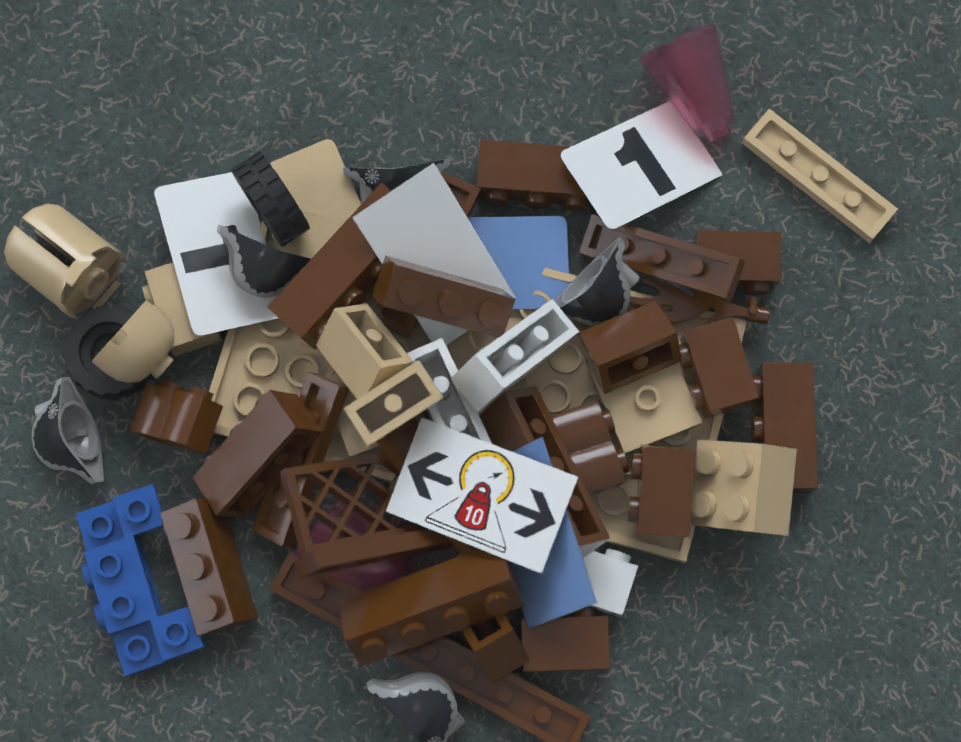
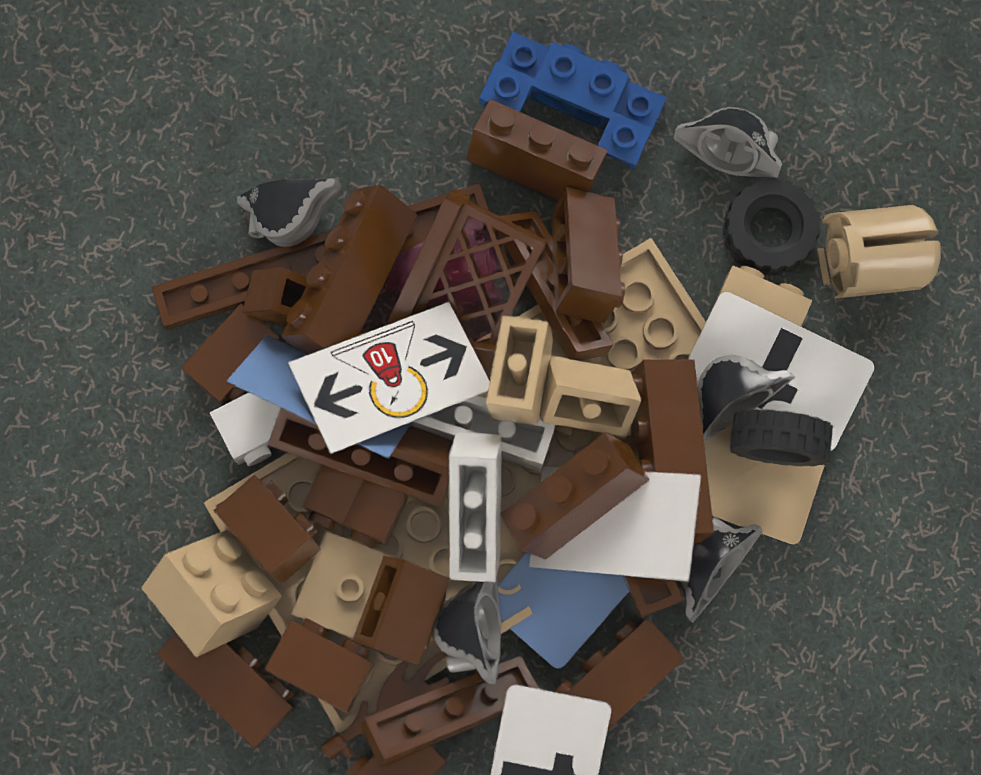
camera: 125 degrees right, 0 degrees up
(139, 346) = (751, 238): tan cylinder -> none
(177, 416) = (672, 227): reddish brown brick -> none

